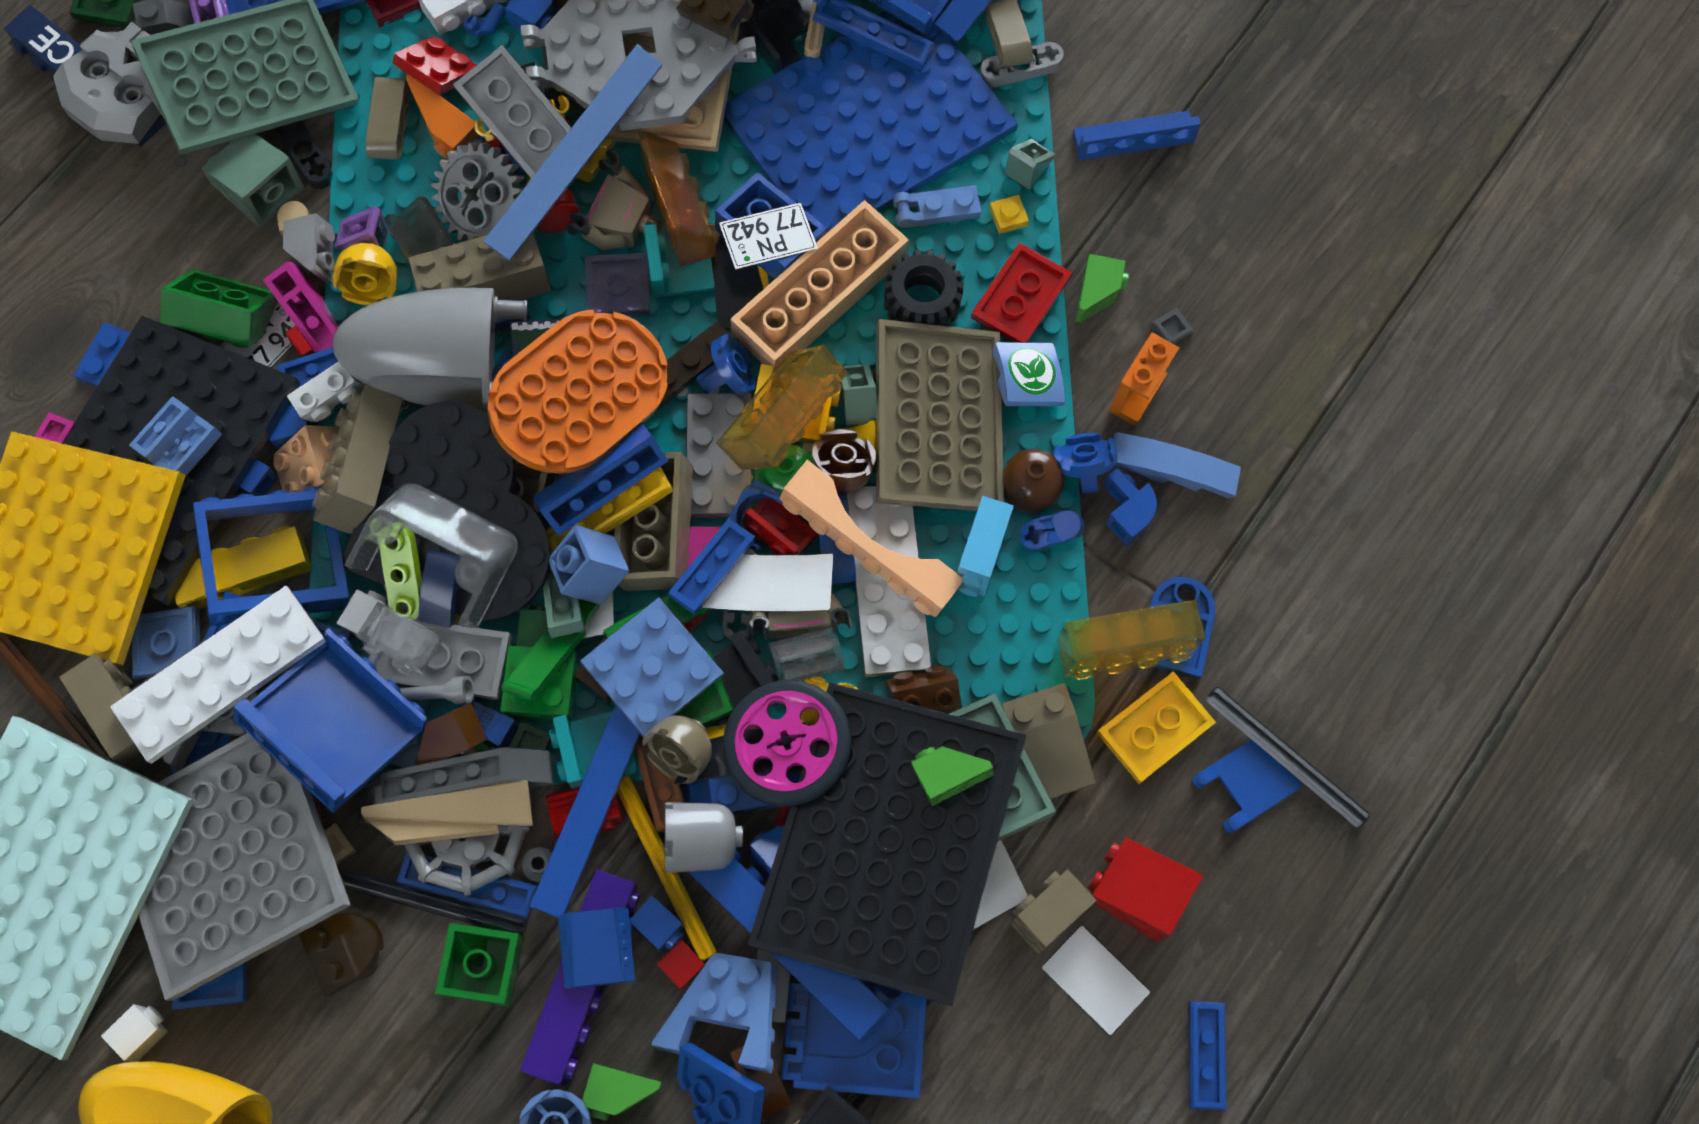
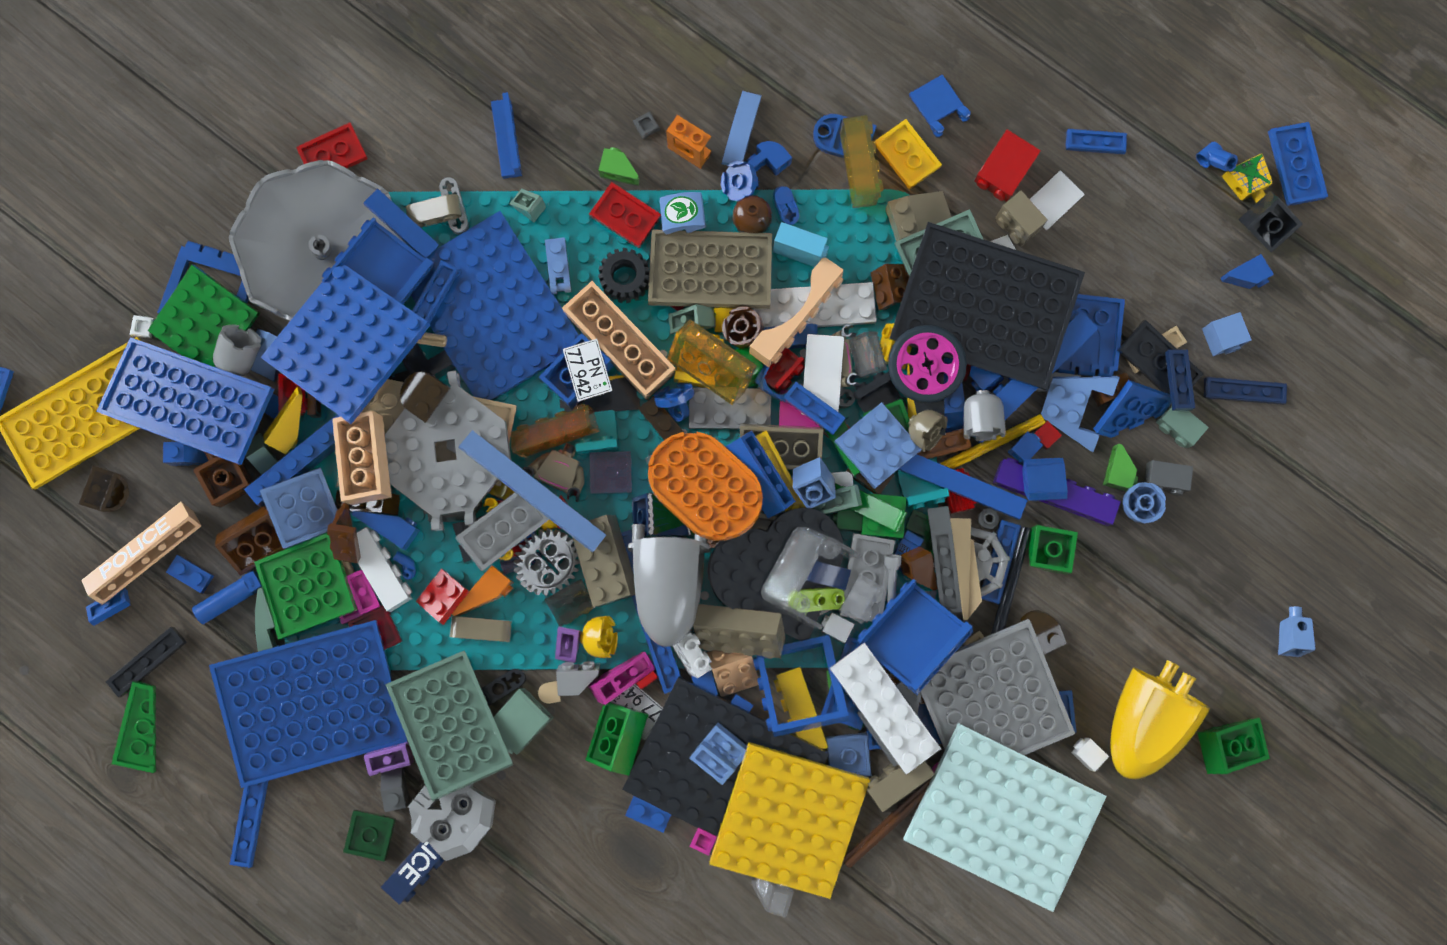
camera: 85 degrees left, 10 degrees up
(948, 772) = (953, 267): bright green slope -> none
(1008, 214) = (565, 220): yellow plate -> none
(1288, 757) = (924, 82): black axle -> none

